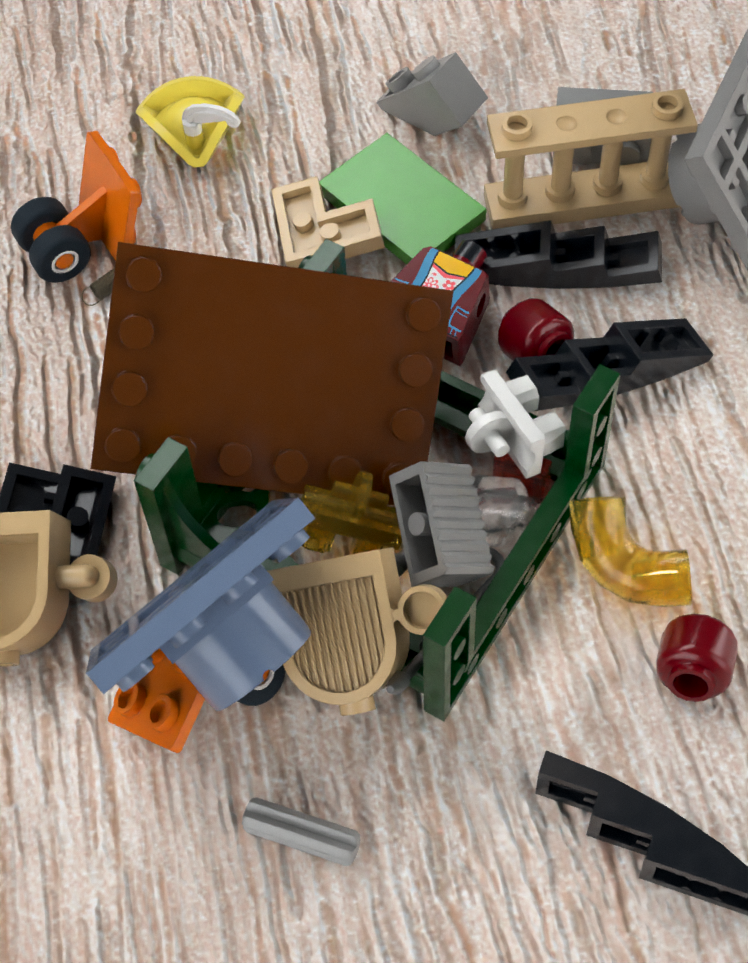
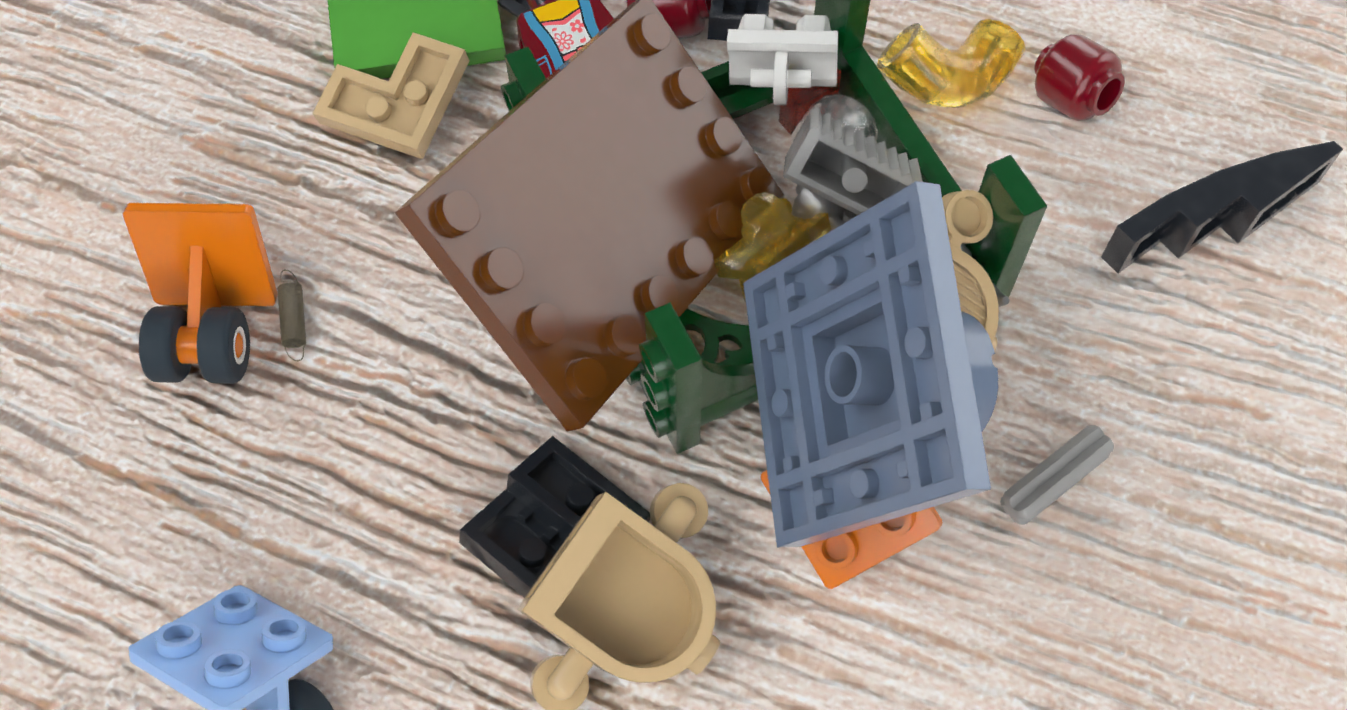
camera: 60 degrees left, 5 degrees up
(192, 115) = (148, 132): light yellow hat -> none

